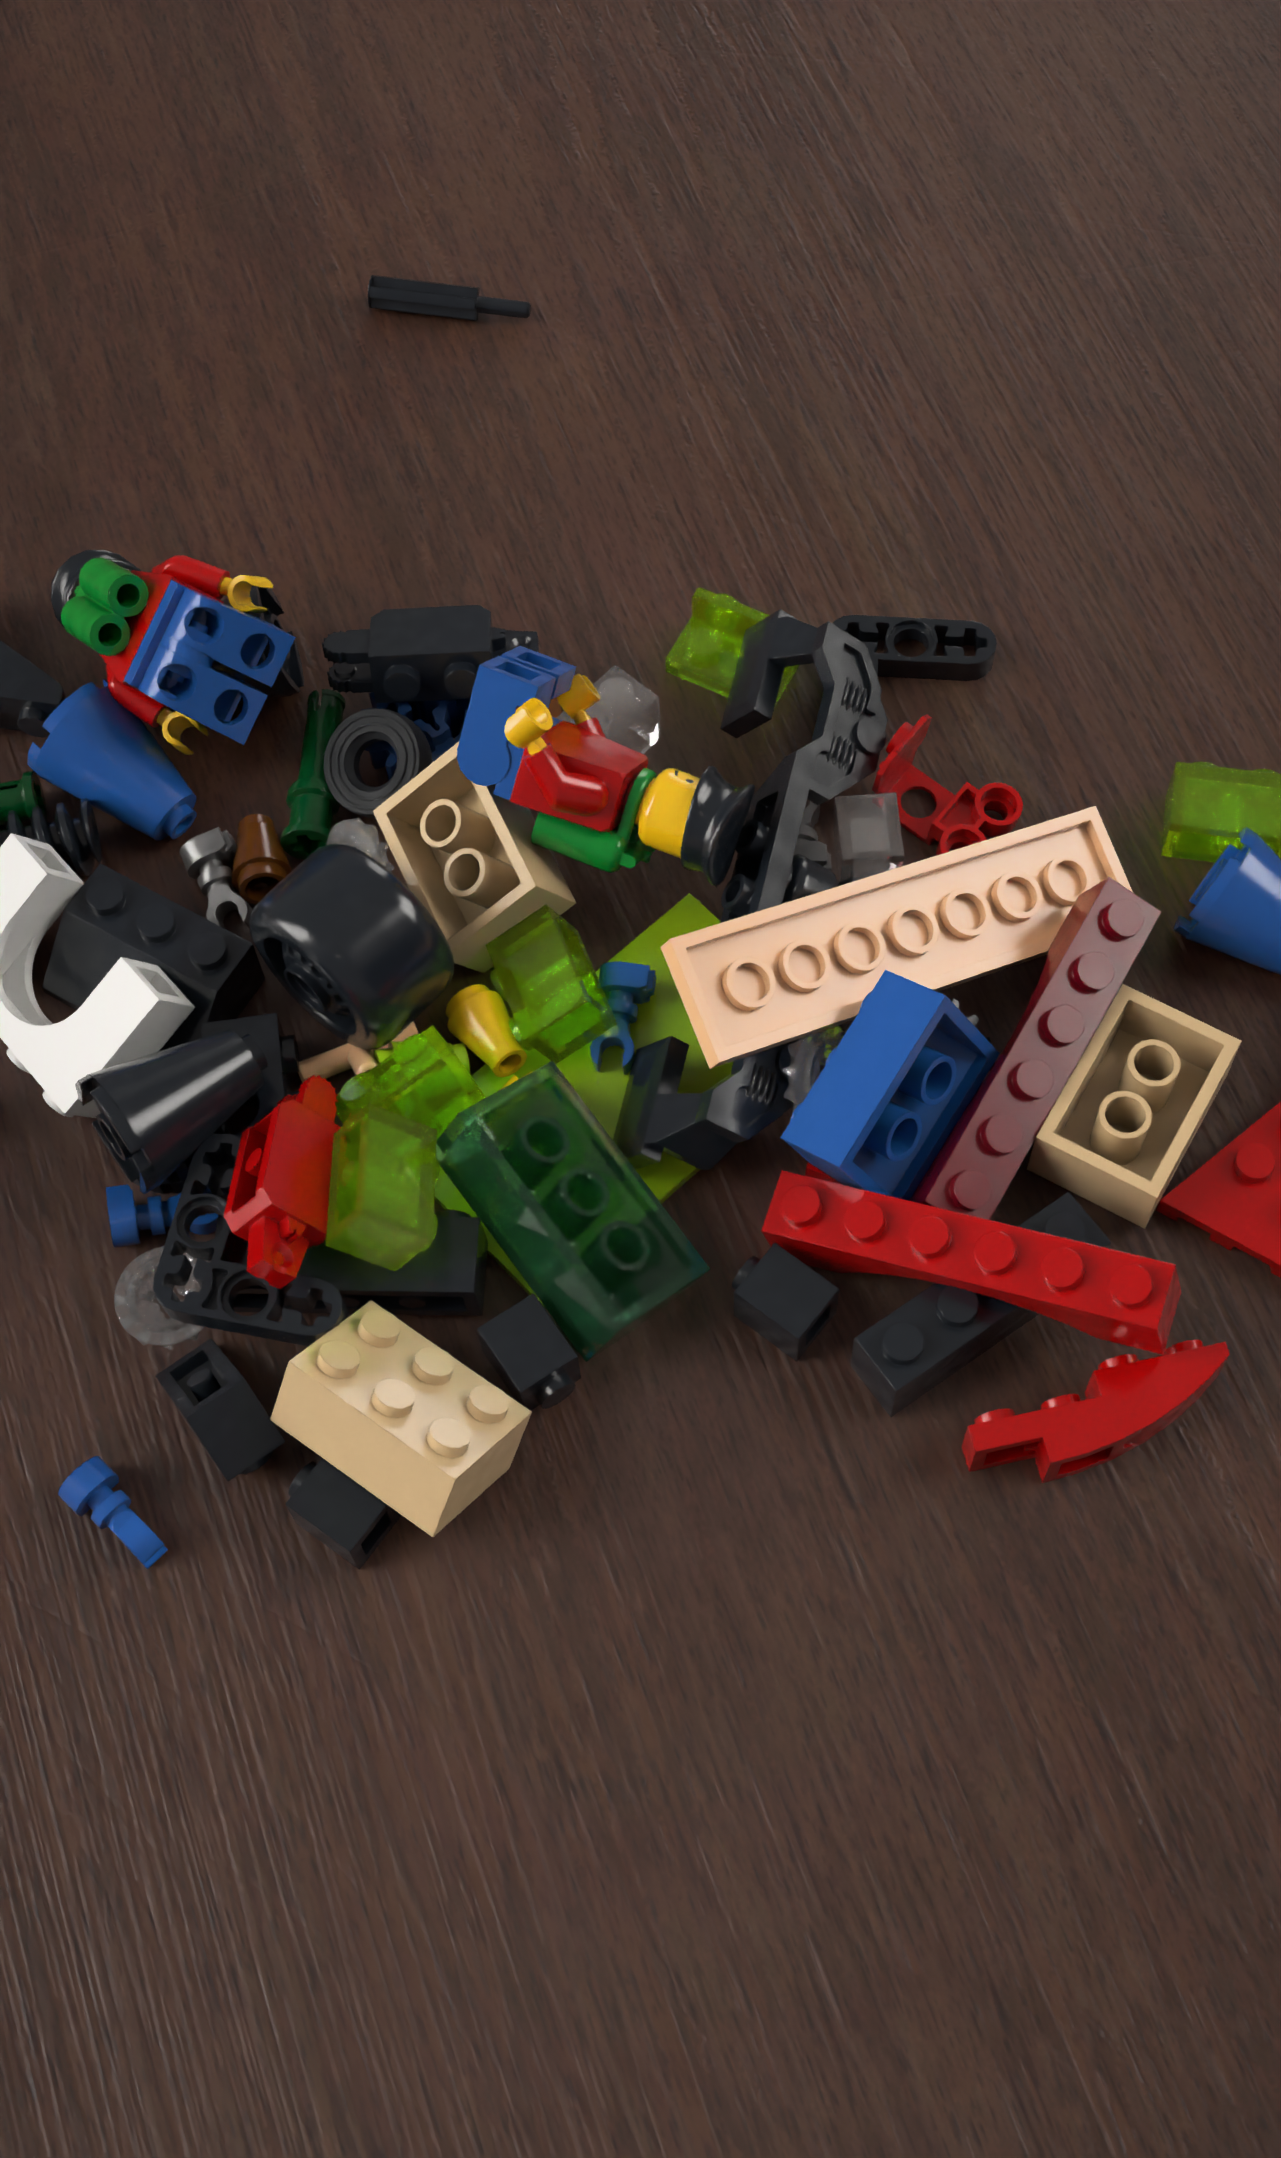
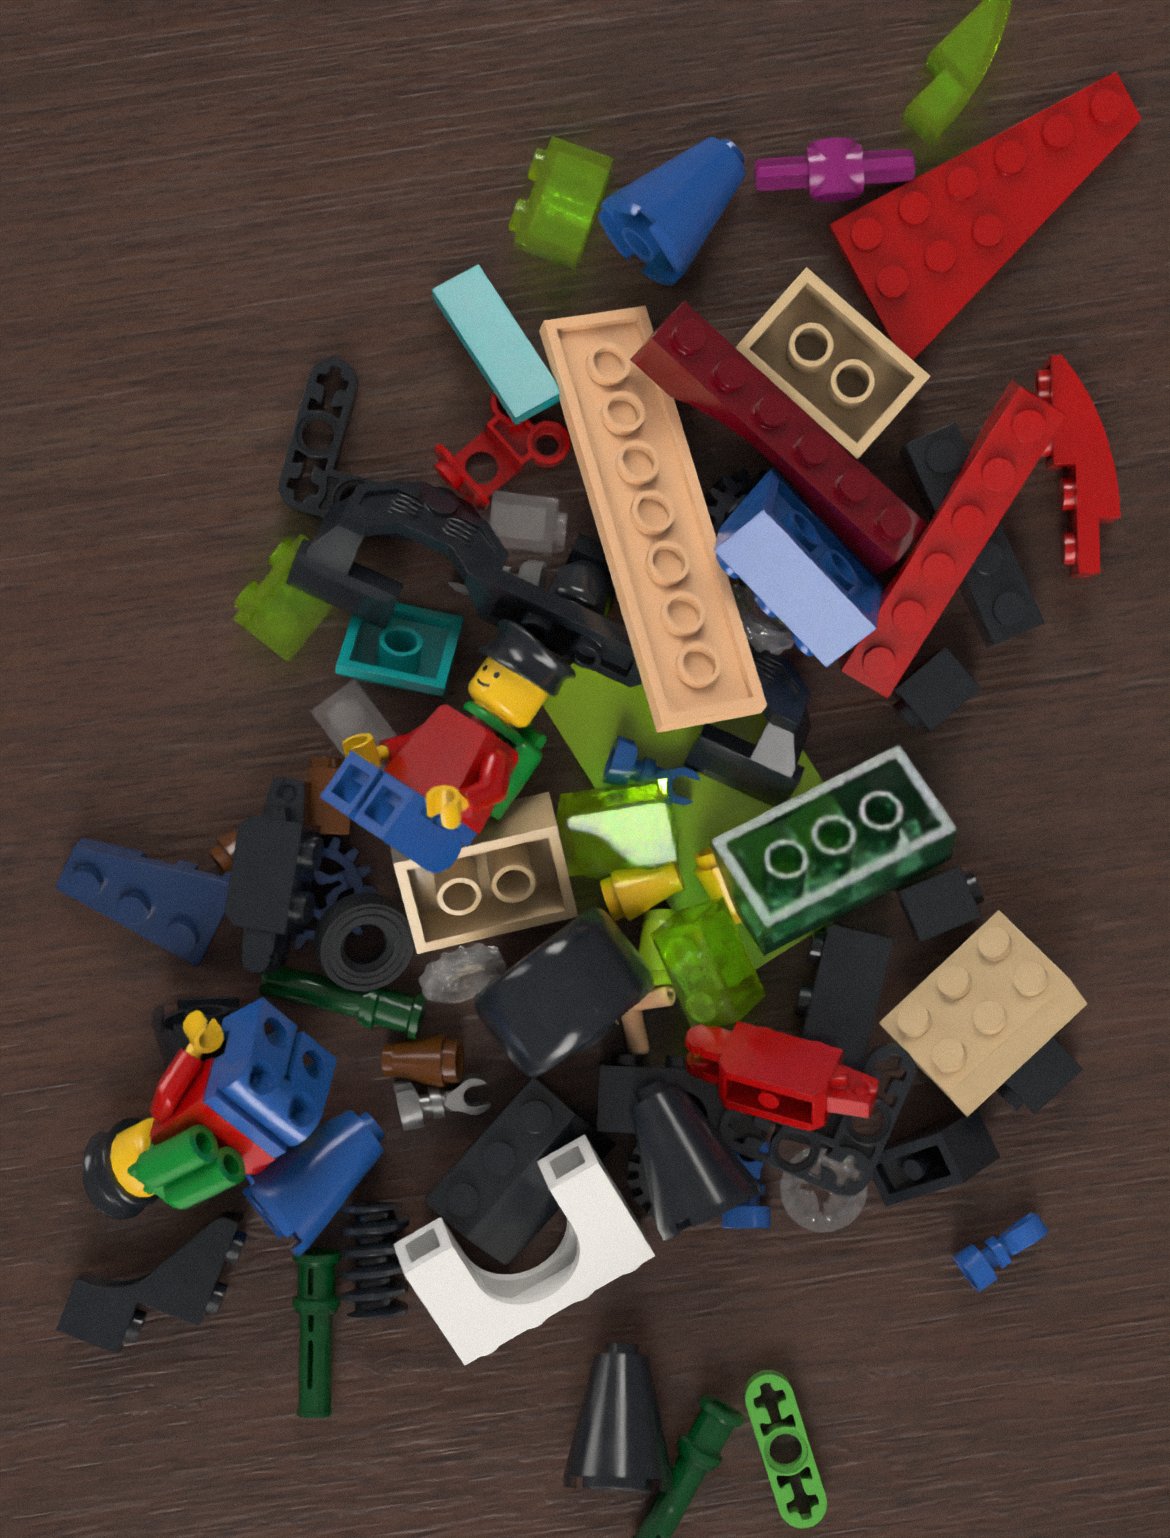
camera: 85 degrees left, 25 degrees up
(382, 1187) = (806, 998): clear neon green brick -> none
(397, 566) = (153, 898): none -> dark blue wing
(692, 733) = (408, 655): none -> teal slope
(1056, 776) = (496, 344): none -> tile

